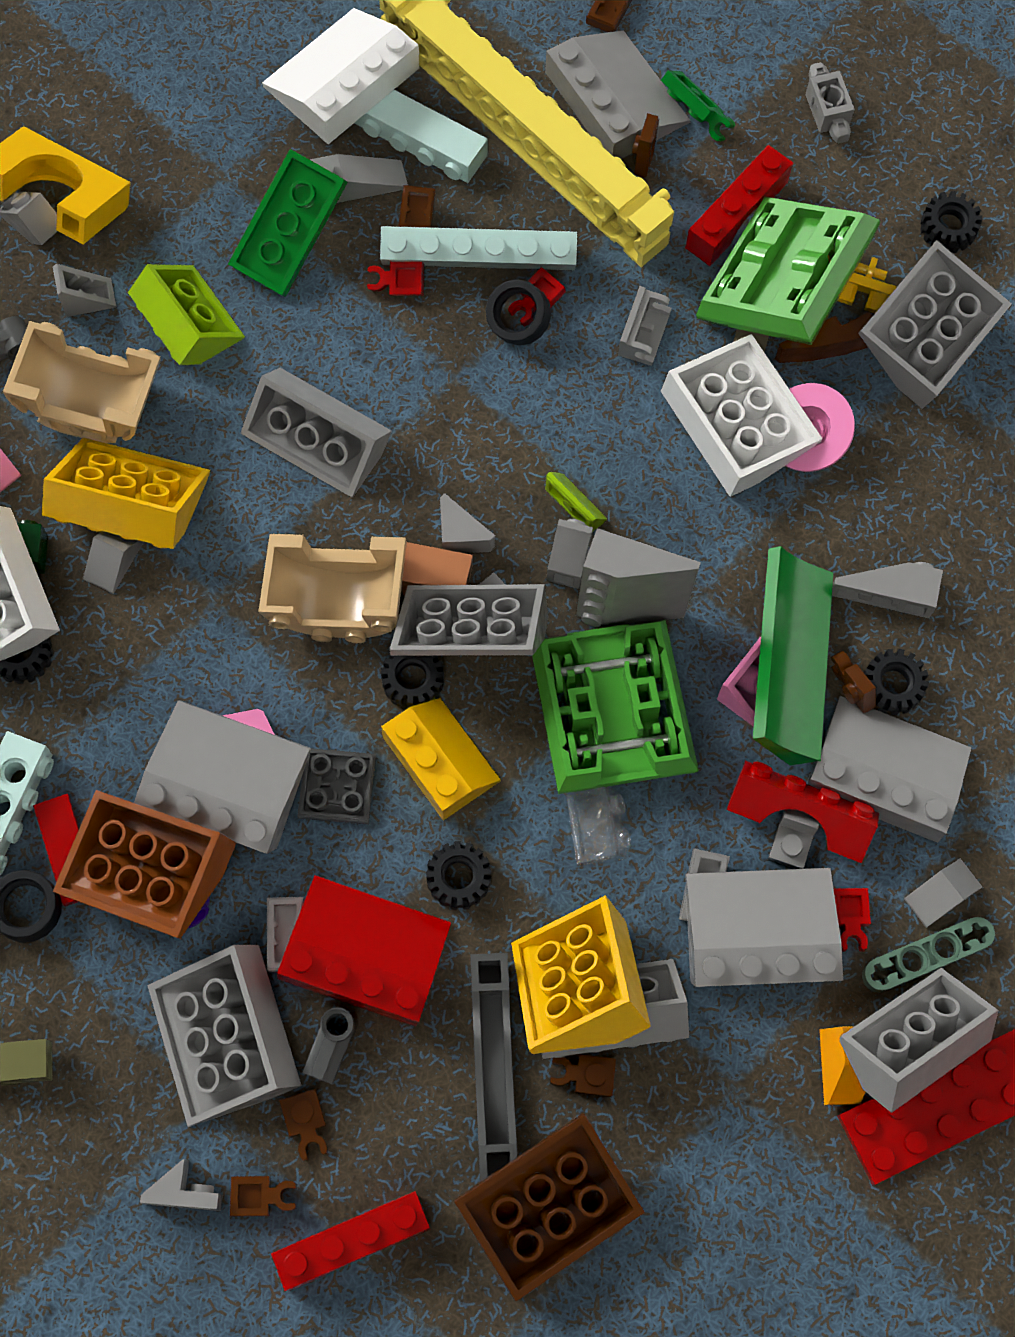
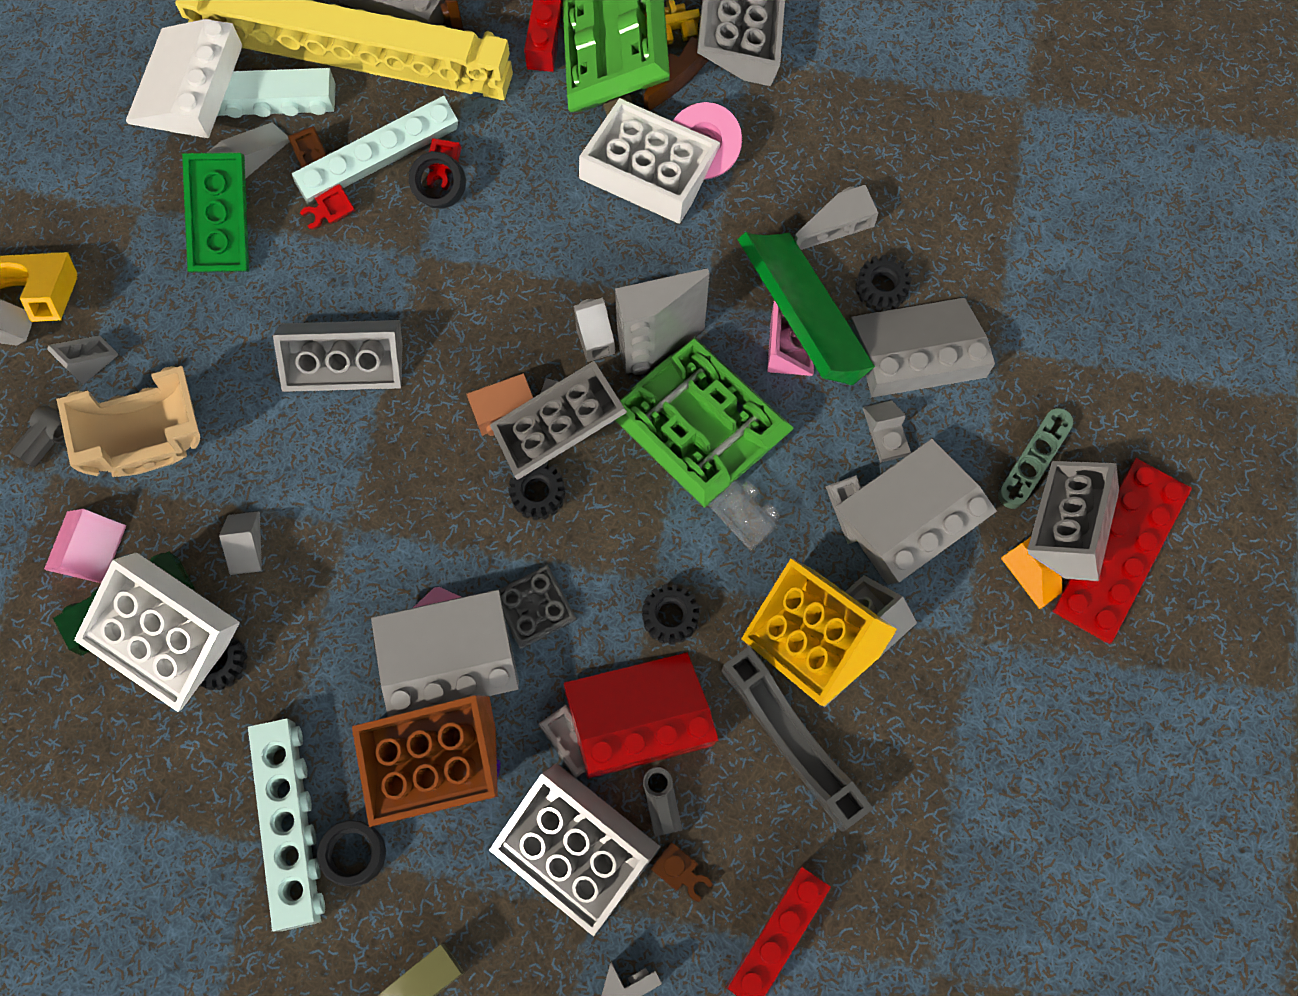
camera: 30 degrees left, 0 degrees up
(59, 831) = (342, 780): red tile -> none
(124, 493) = (219, 489): yellow slope -> none
(184, 312) = (176, 327): lime slope -> none
(253, 1196) = (681, 955): reddish brown plate -> none
(333, 589) = (436, 461): tan cylinder -> none
(439, 756) = (596, 537): yellow slope -> none
(462, 531) = (501, 361): light grey slope -> none
(548, 1207) = (908, 813): reddish brown slope -> none
(573, 500) = (566, 292): lime slope -> none
(592, 1075) = (864, 697): reddish brown plate -> none
(645, 326) = (536, 139): light grey hinge -> none
(845, 823) = (847, 416): red arch -> none
(852, 914) = (969, 460): red plate -> none
(857, 686) = (860, 300): reddish brown plate -> none
(943, 892) = (1016, 409): light grey slope -> none

